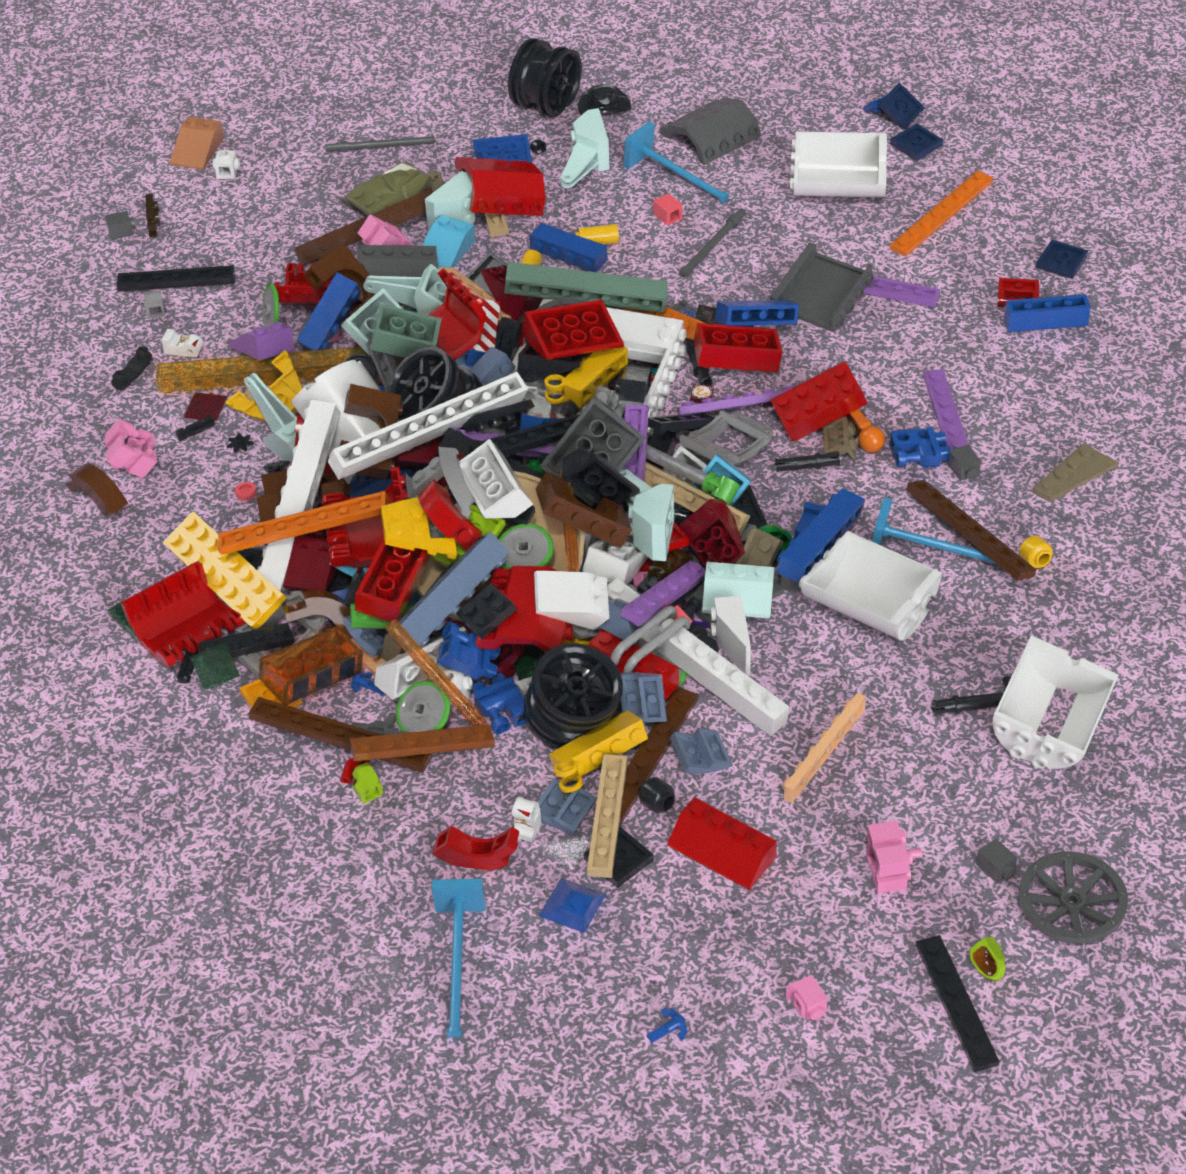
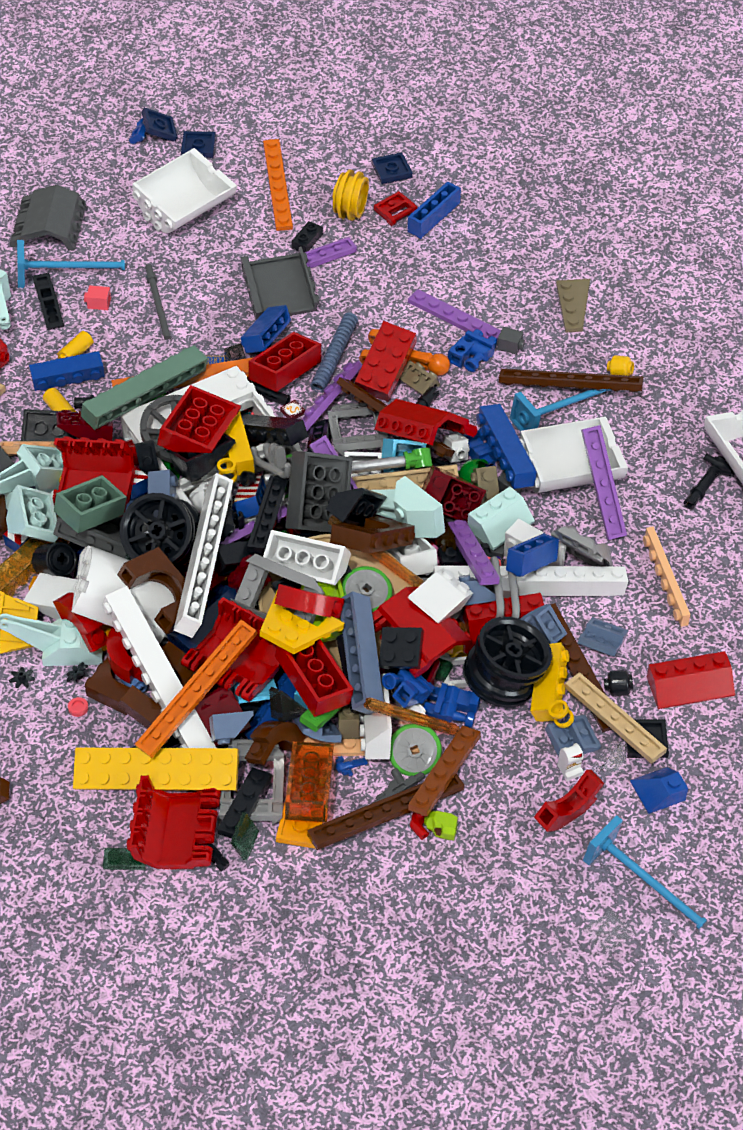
camera: 50 degrees left, 5 degrees up
(299, 574) = (227, 726): none -> sand blue slope
(628, 188) = (48, 301): none -> black slope
(700, 626) = (532, 554): none -> blue brick
(762, 450) = (376, 405): none -> reddish brown plate
(768, 450) = (420, 422): none -> red hinge
(773, 671) = (584, 547): none -> light grey wedge
(786, 511) = (459, 444): none -> white brick
(798, 371) = (334, 352): none -> sand blue piece
(857, 621) = (603, 482): none -> medium lavender plate
(905, 268) = (307, 236): none -> black piece
(978, 252) = (350, 195): none -> yellow wheel

